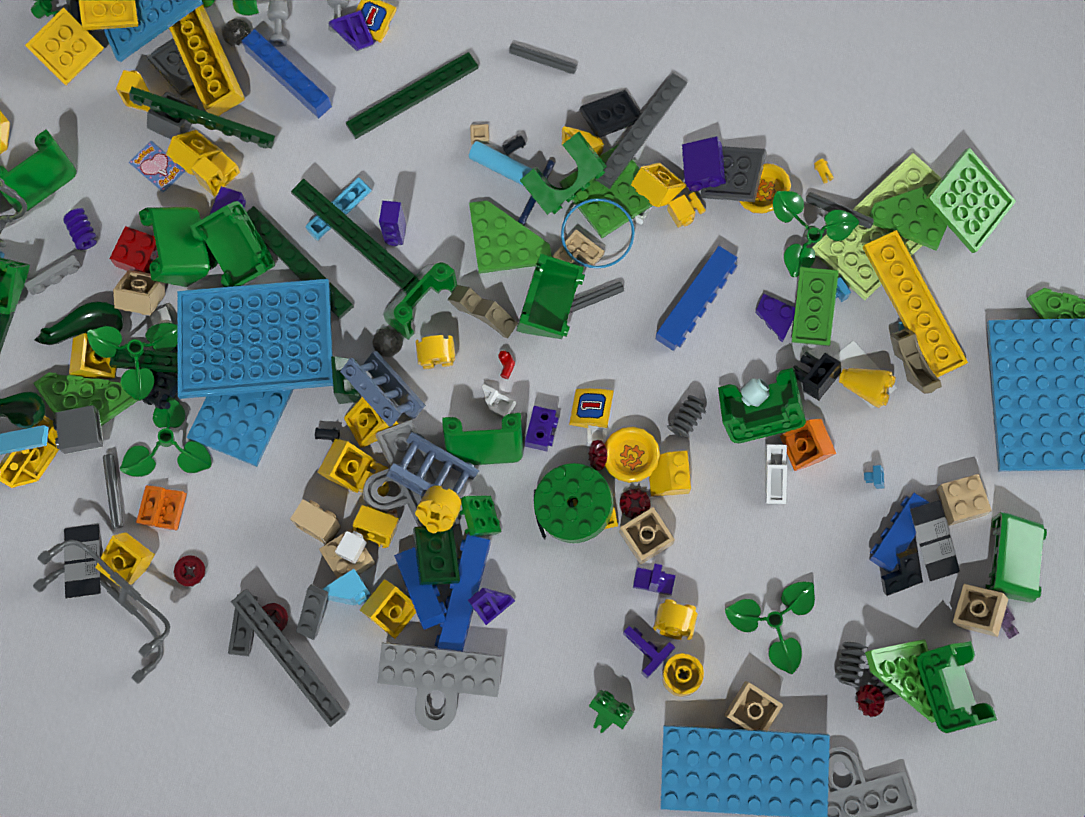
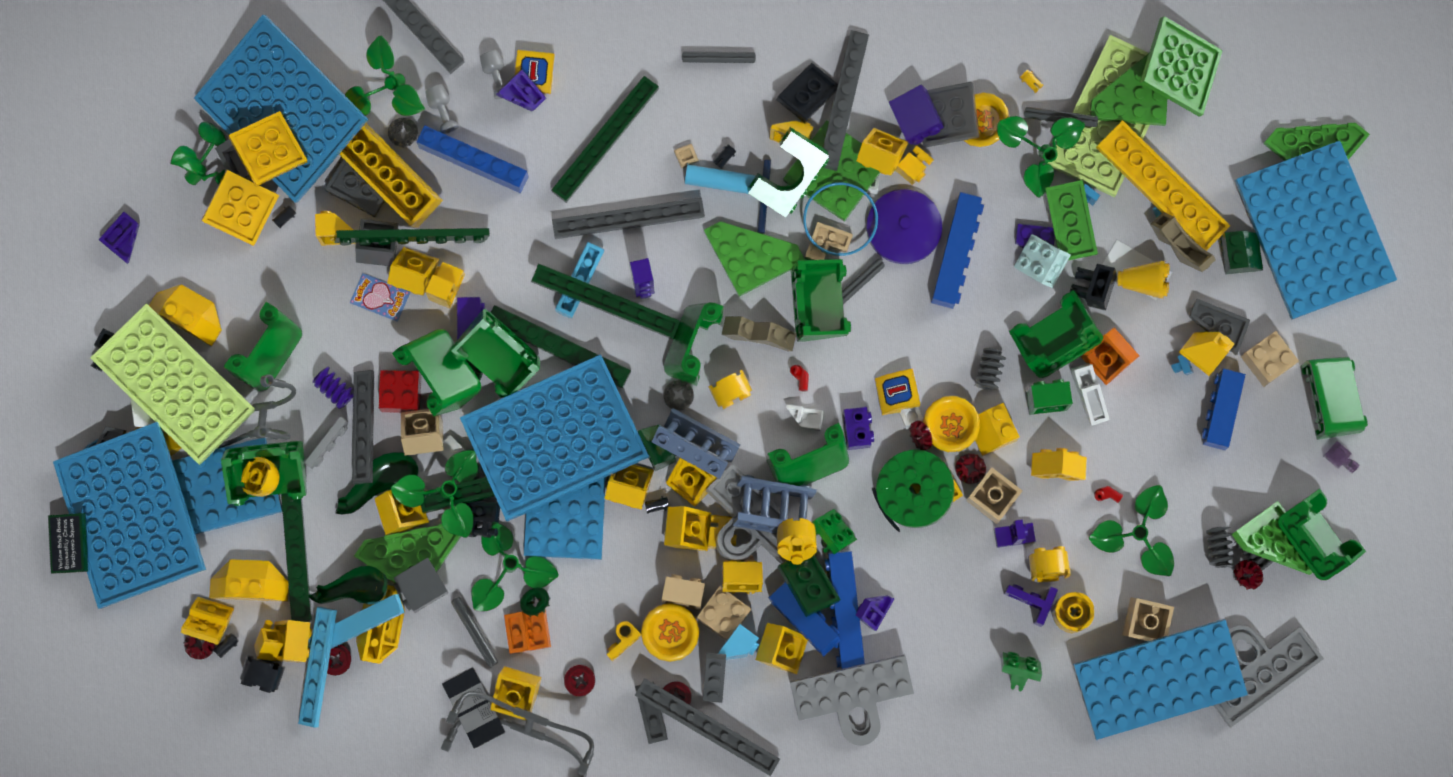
camera: 25 degrees left, 5 degrees up
(90, 272) = (363, 427): none -> dark grey tile
(102, 69) = (284, 216): none -> black pin
(174, 479) = (529, 599): none -> dark green gear
(246, 550) = (617, 649): none -> yellow plate
(289, 555) = (670, 632): none -> yellow piece
(308, 407) = (629, 486): none -> yellow slope
(351, 546) = (729, 604): white brick -> none
(405, 170) = (628, 218): none -> dark grey plate
(657, 262) = (906, 226): none -> dark purple dish
(720, 528) = (1059, 464): none -> yellow brick
(733, 461) = (1049, 397): none -> green brick
(755, 392) = (1045, 324): light aqua head -> none
(758, 572) = (1107, 492): none -> red arm
(774, 334) = (1042, 261): none -> light aqua bracket
(904, 470) = (1206, 350): none -> yellow slope
(907, 575) = (1242, 448): black plate -> none
(927, 451) = (1220, 320): none -> dark grey wing
(934, 540) = (1256, 406): sticker -> none
(970, 391) = (1241, 252): none -> dark green slope
(980, 610) = (1319, 457): tan brick -> none

